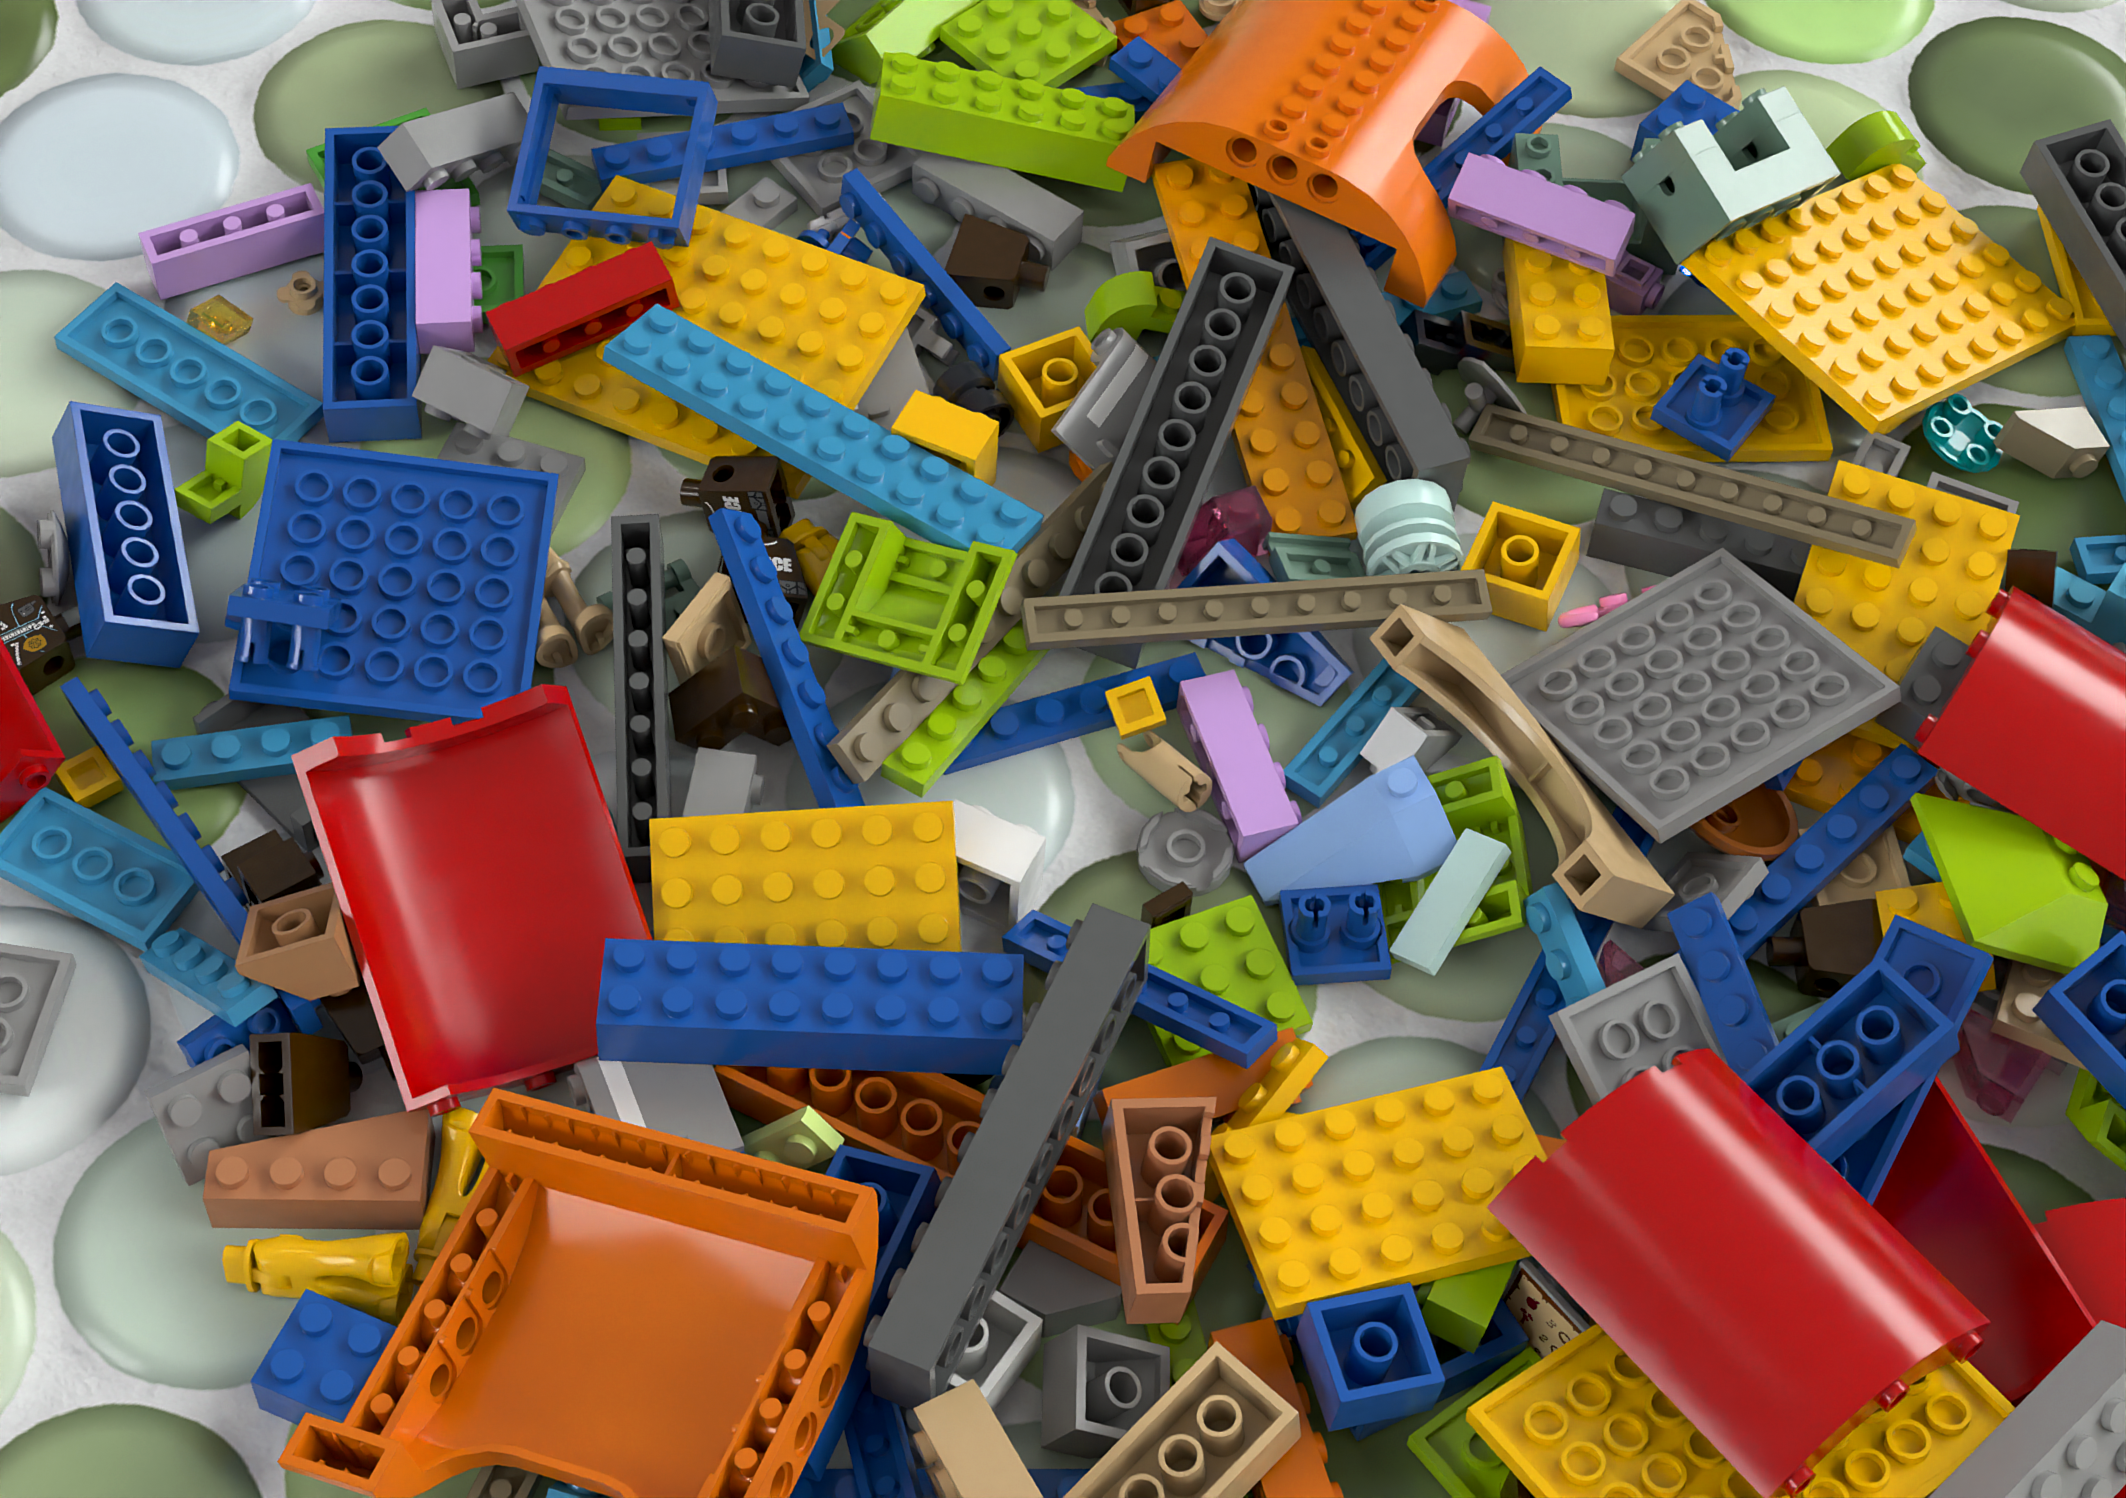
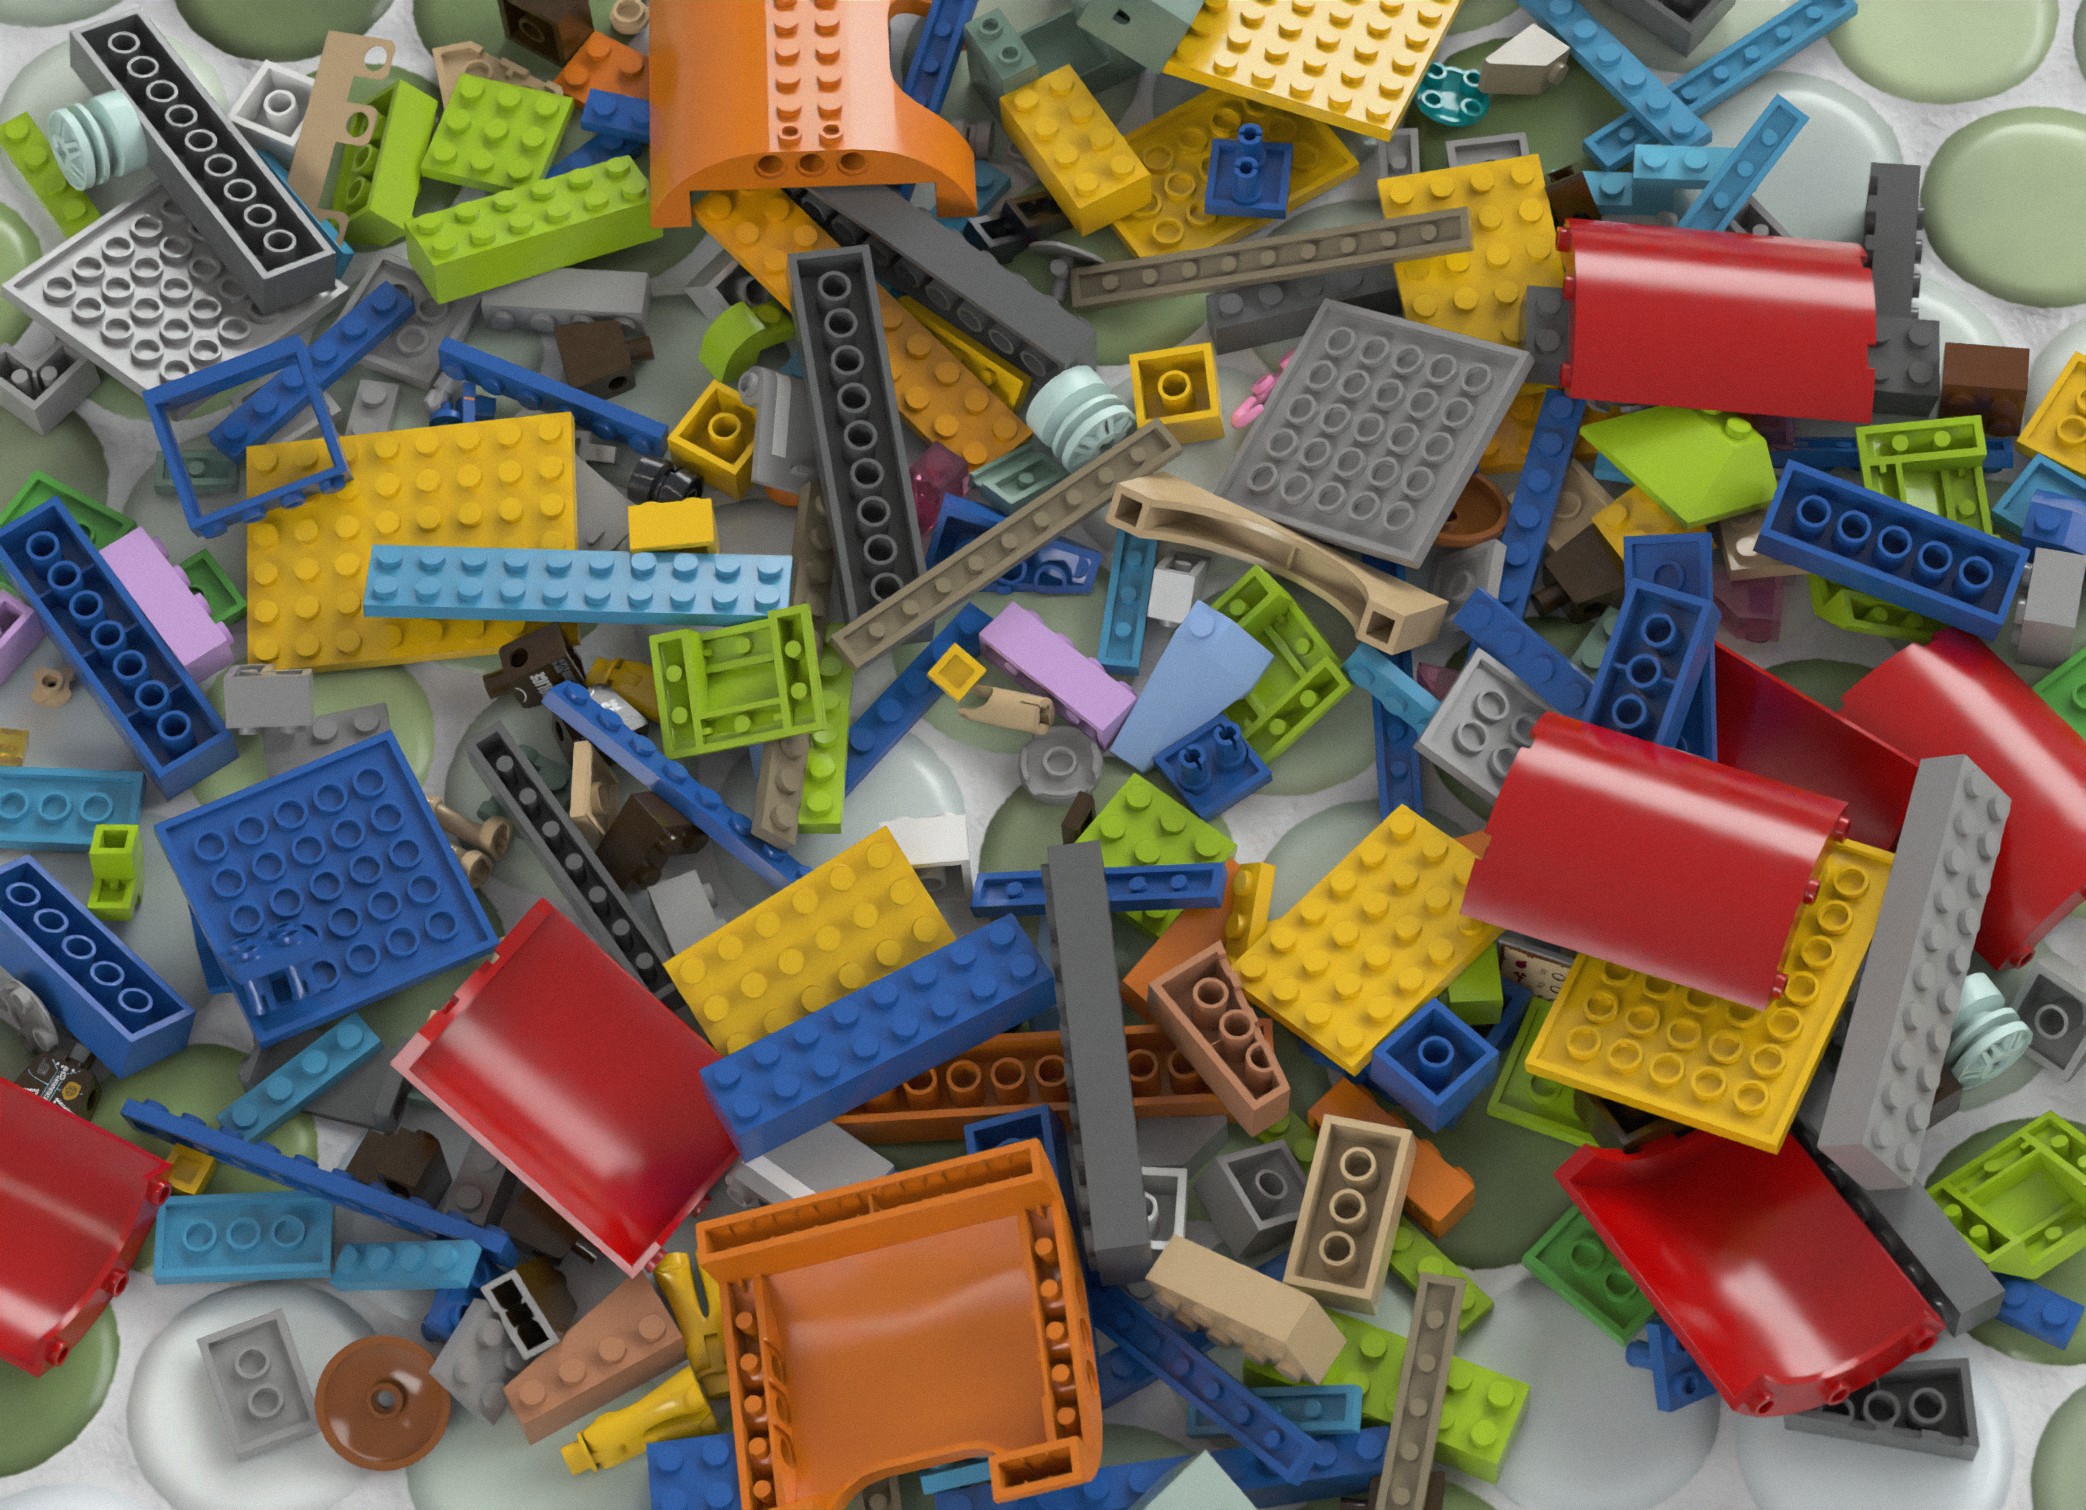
camera: 20 degrees left, 5 degrees up
(63, 1093) = (356, 1420): none -> dark orange dish
(300, 945) = (475, 1198): medium nougat slope -> none
(456, 142) = (104, 489): light grey brick -> none
(581, 308) = (307, 579): red brick -> none
(794, 1140) = (926, 1141): yellowish green plate -> none
(1450, 901) = (1286, 697): light aqua tile -> none
(1473, 251) = (979, 137): none -> light grey wheel
(1541, 213) = (1030, 88): lavender brick -> none
(1634, 286) = (1121, 98): lavender window -> none

